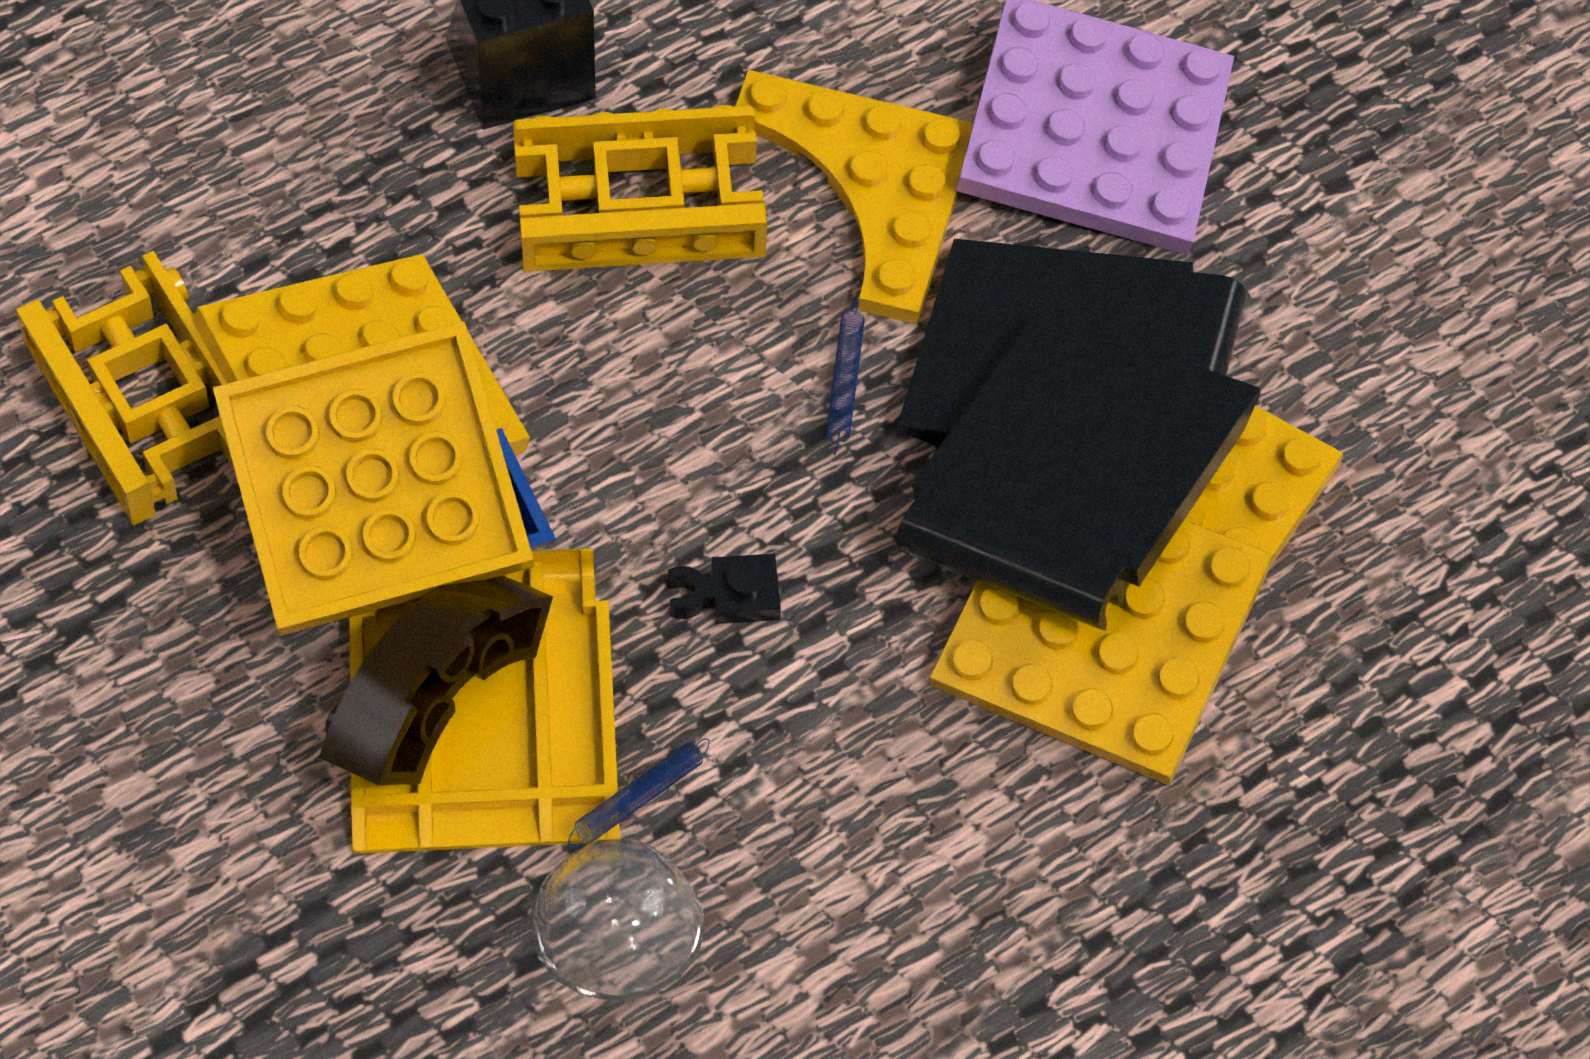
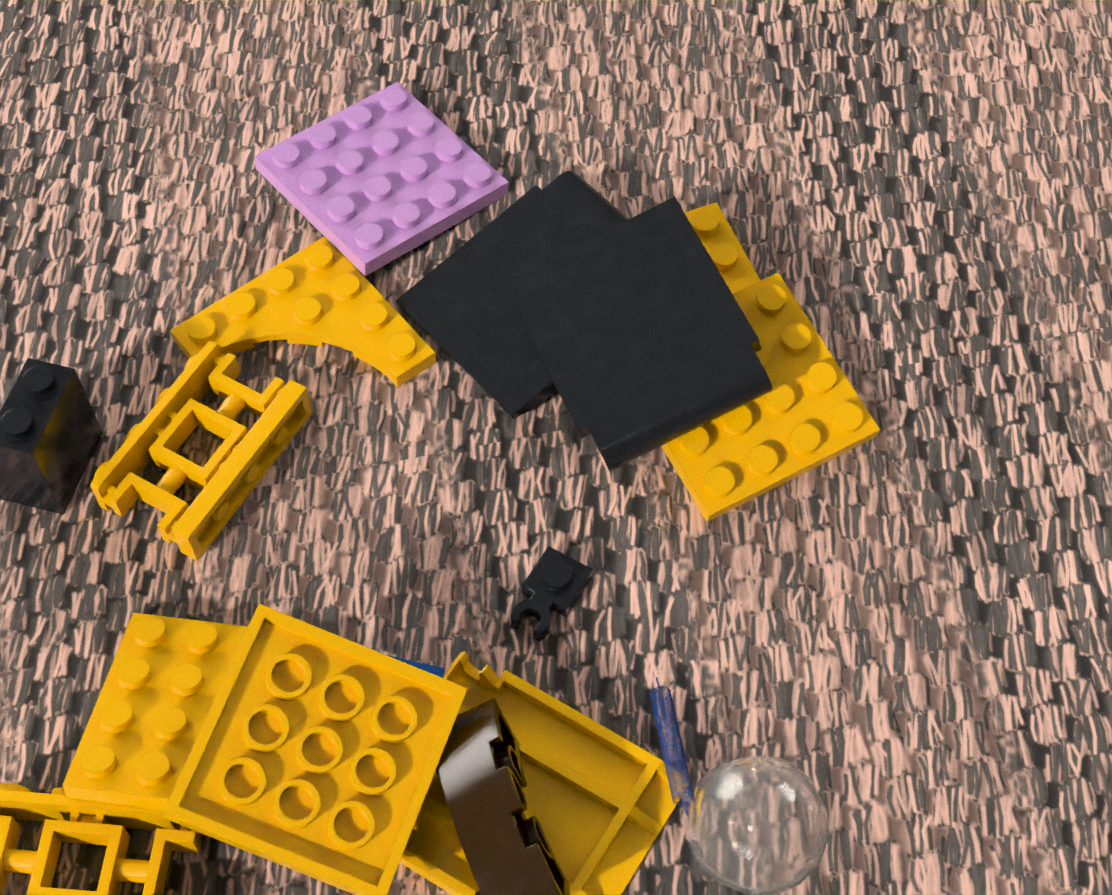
camera: 50 degrees left, 0 degrees up
(855, 375) = (449, 423): blue piece -> none

